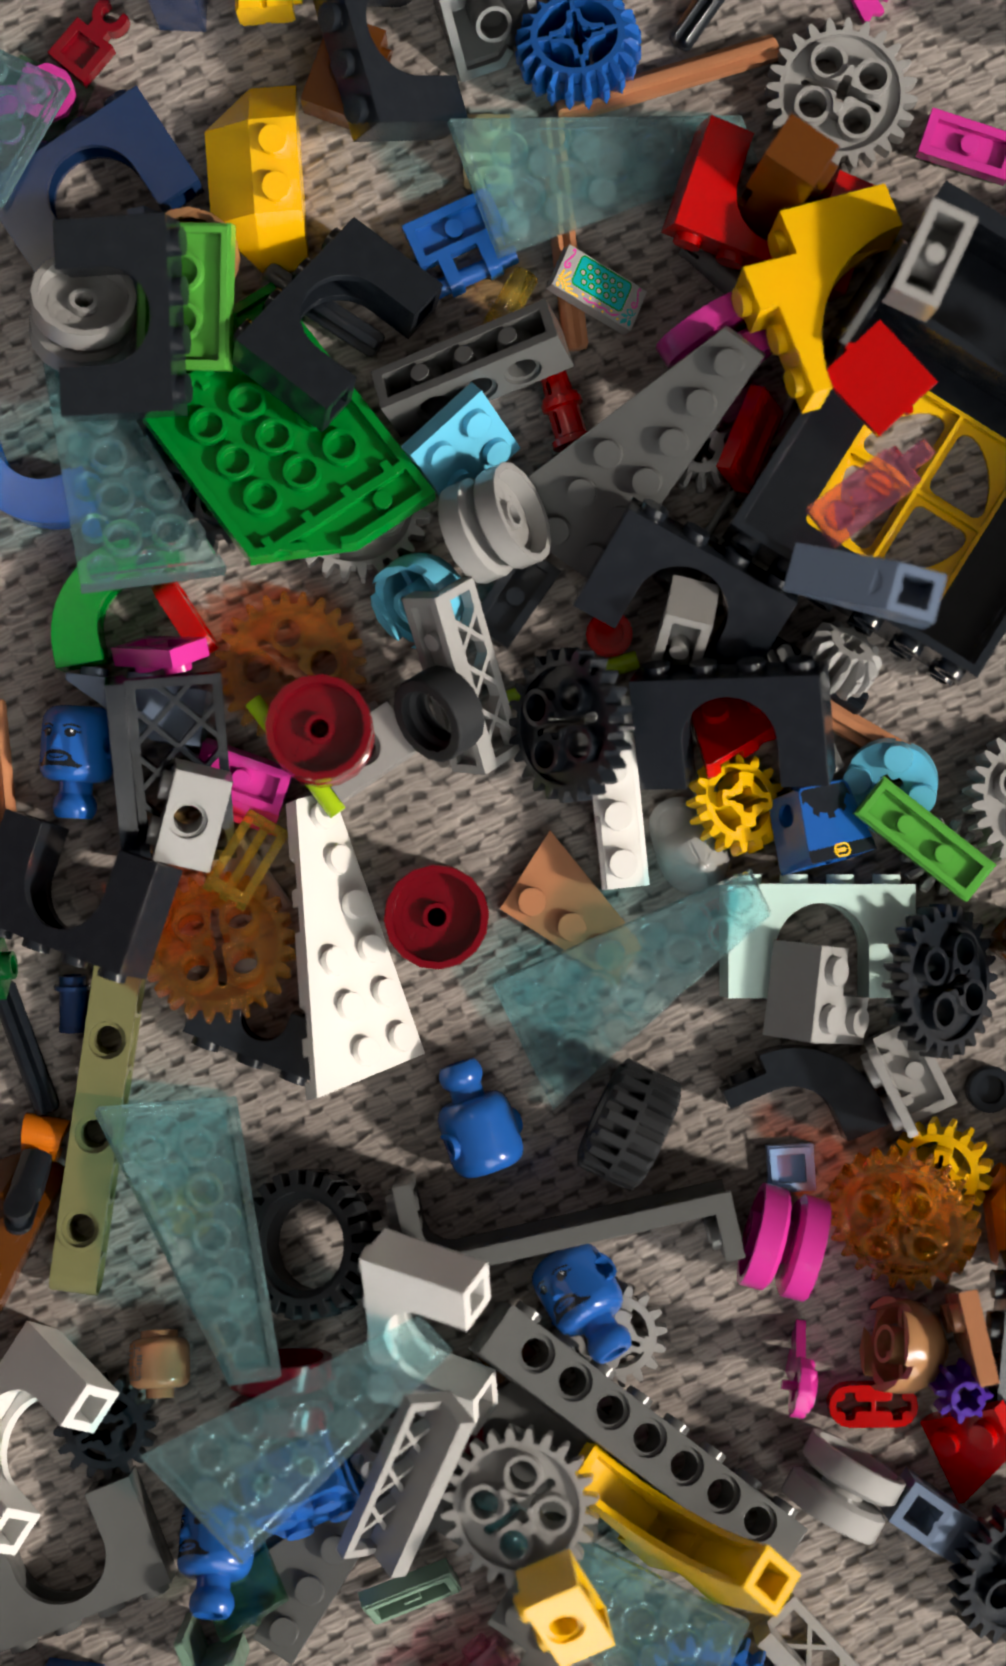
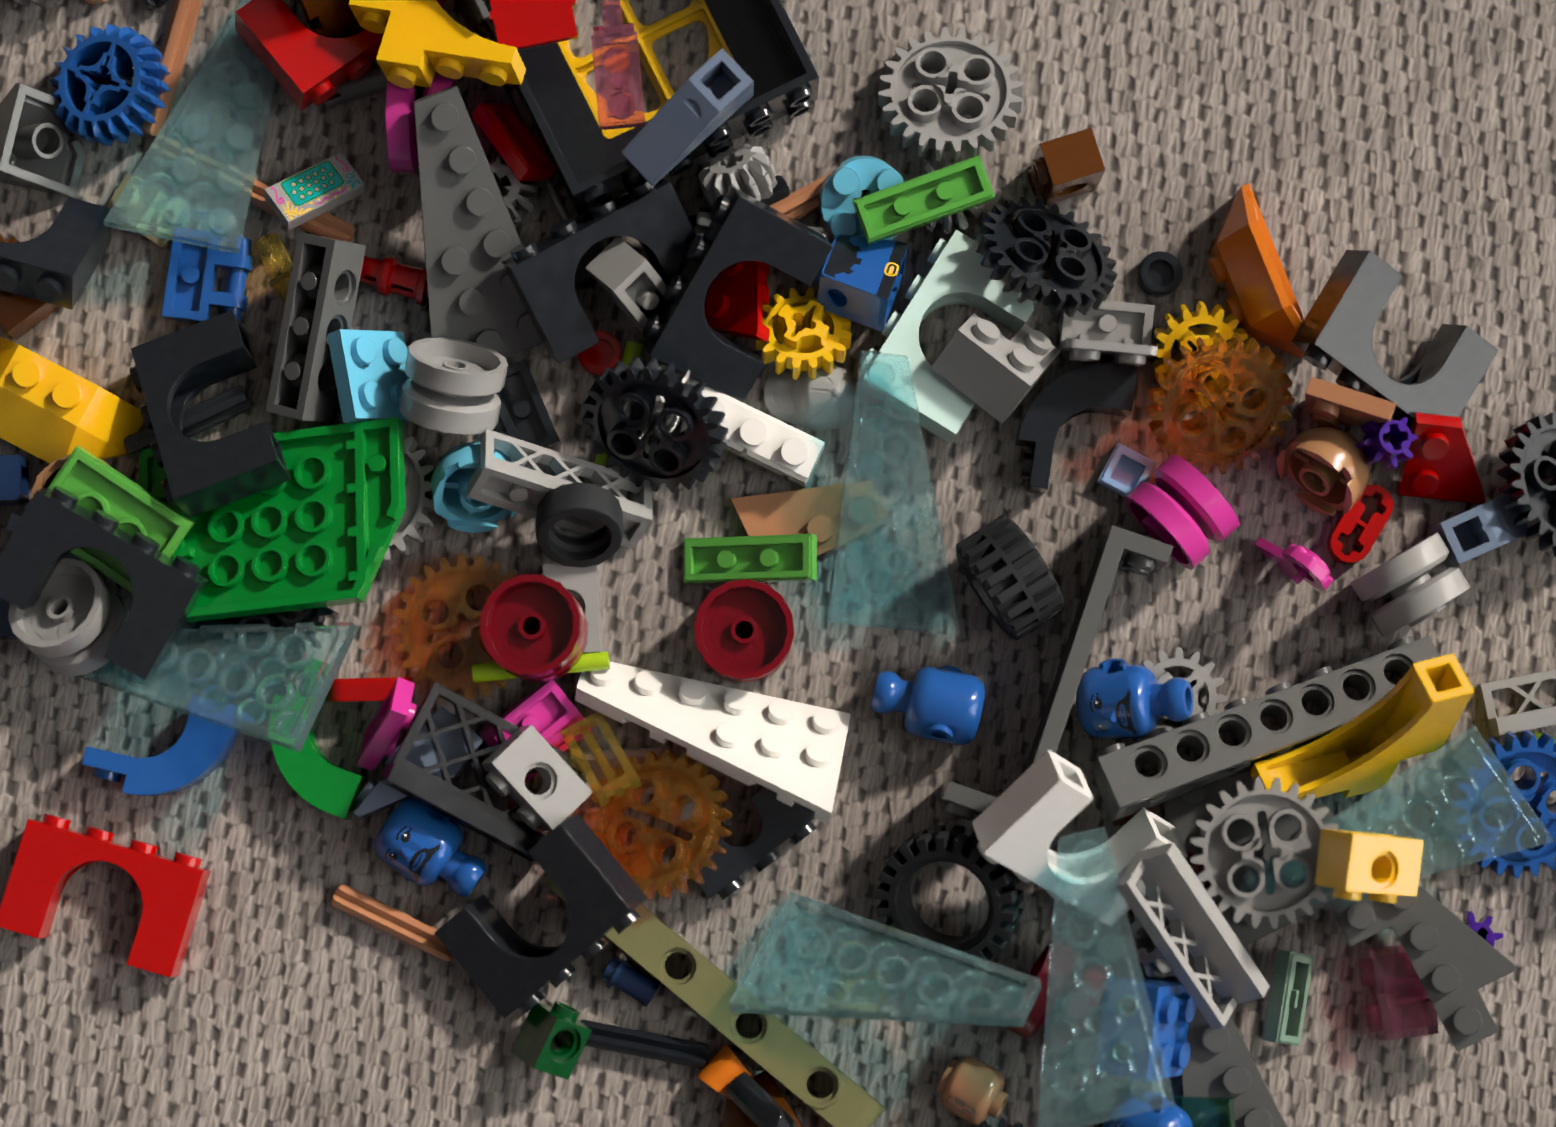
camera: 65 degrees left, 5 degrees down
(505, 882) = (750, 557): none -> bright green tile

